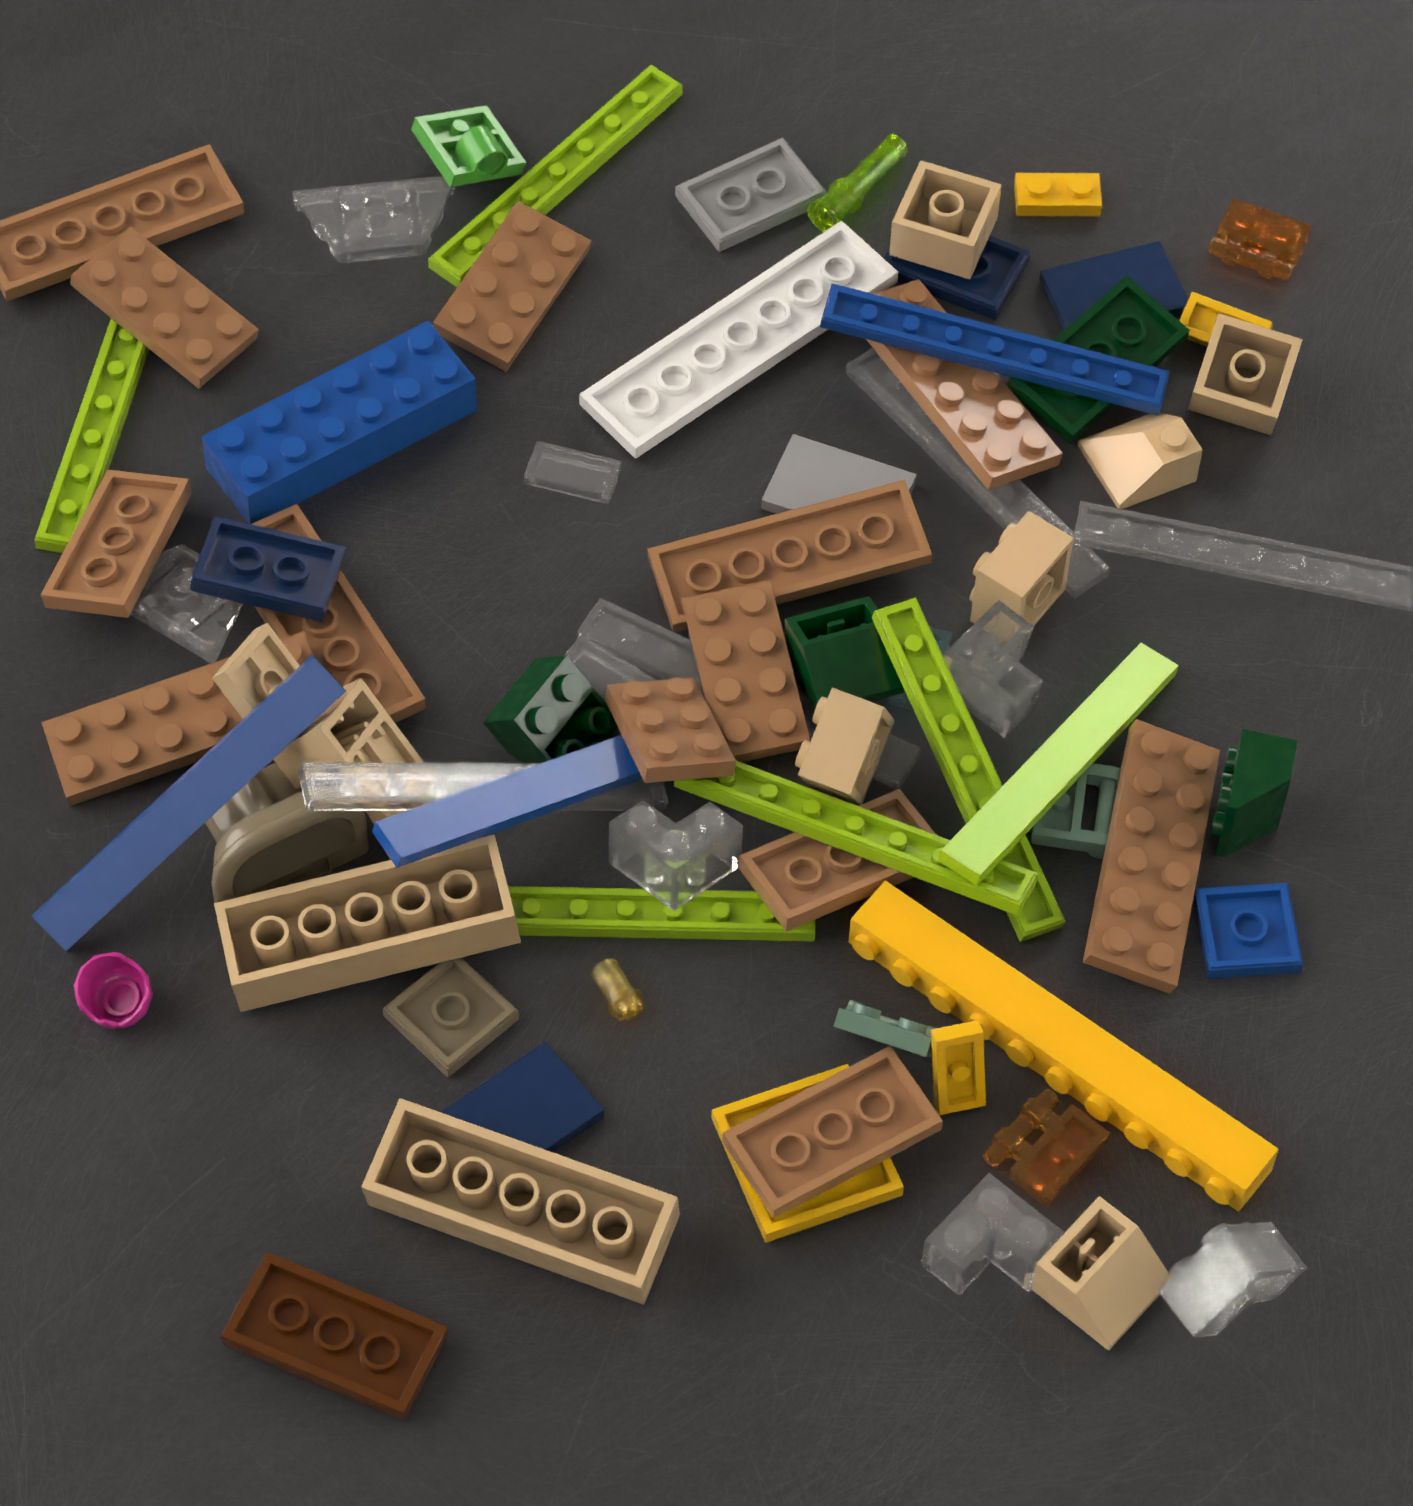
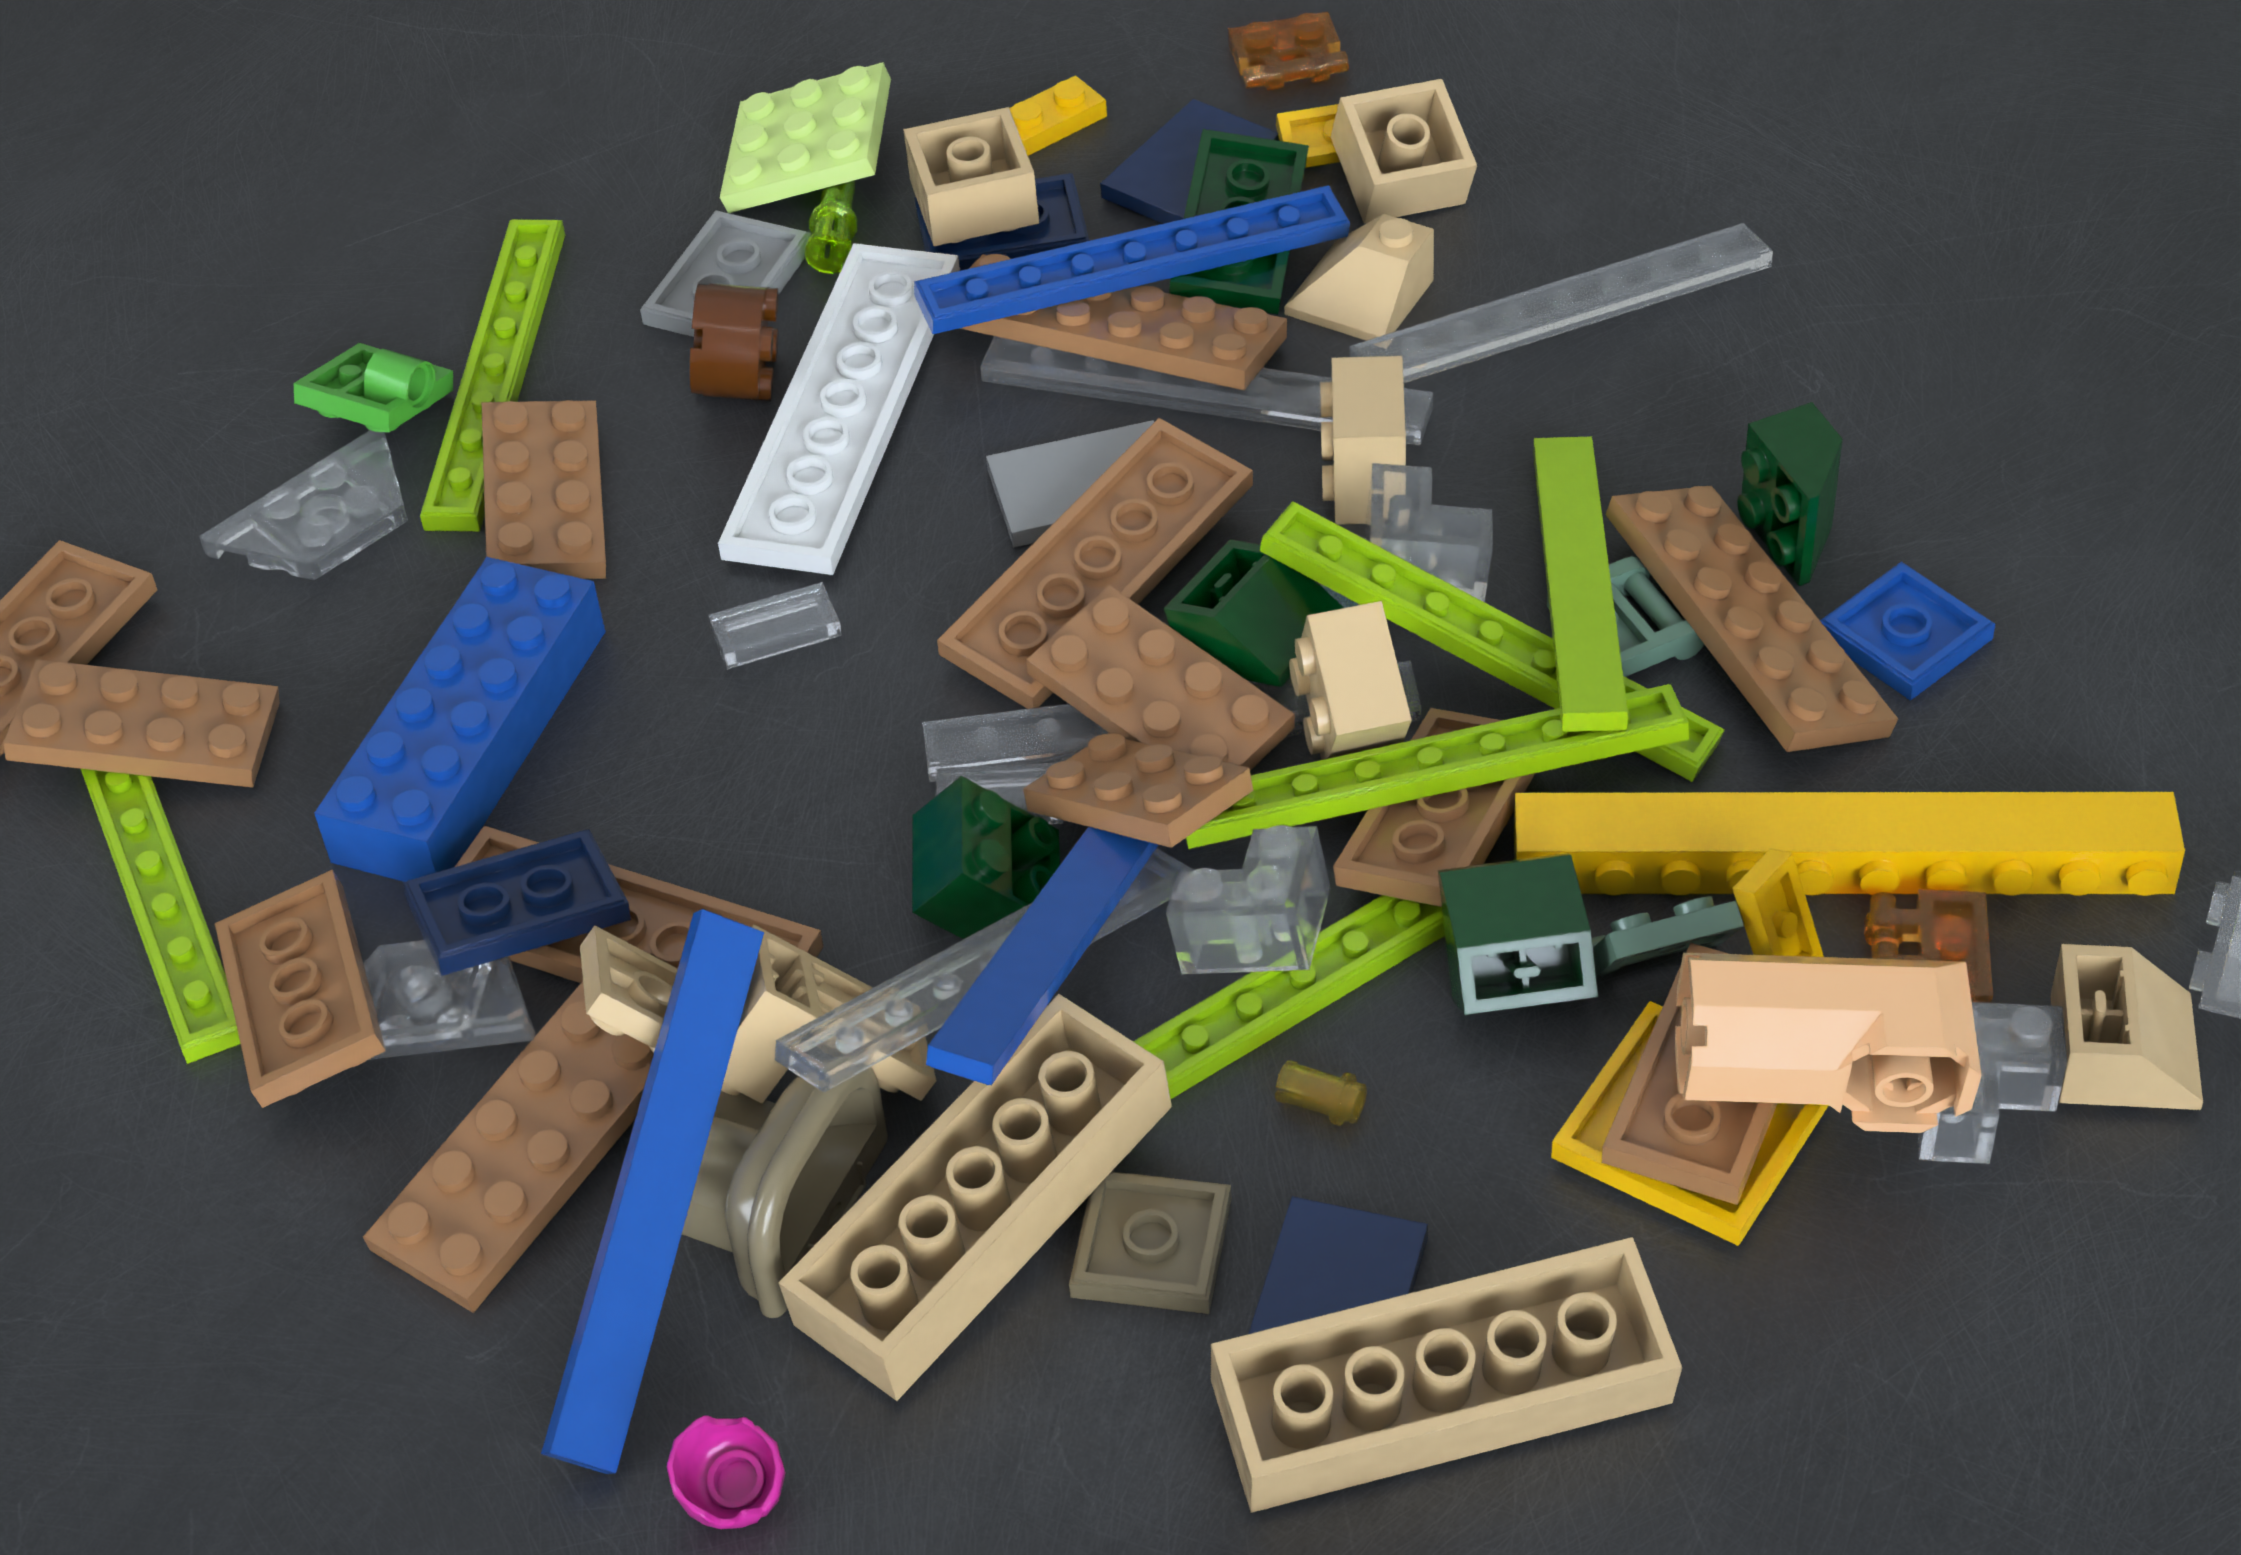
camera: 30 degrees left, 10 degrees down
(700, 252) = (733, 341): none -> reddish brown brick
(799, 971) = (1516, 934): none -> dark green slope
(879, 117) = (806, 137): none -> yellowish green plate
(888, 1153) = (1829, 1031): none -> light nougat brick

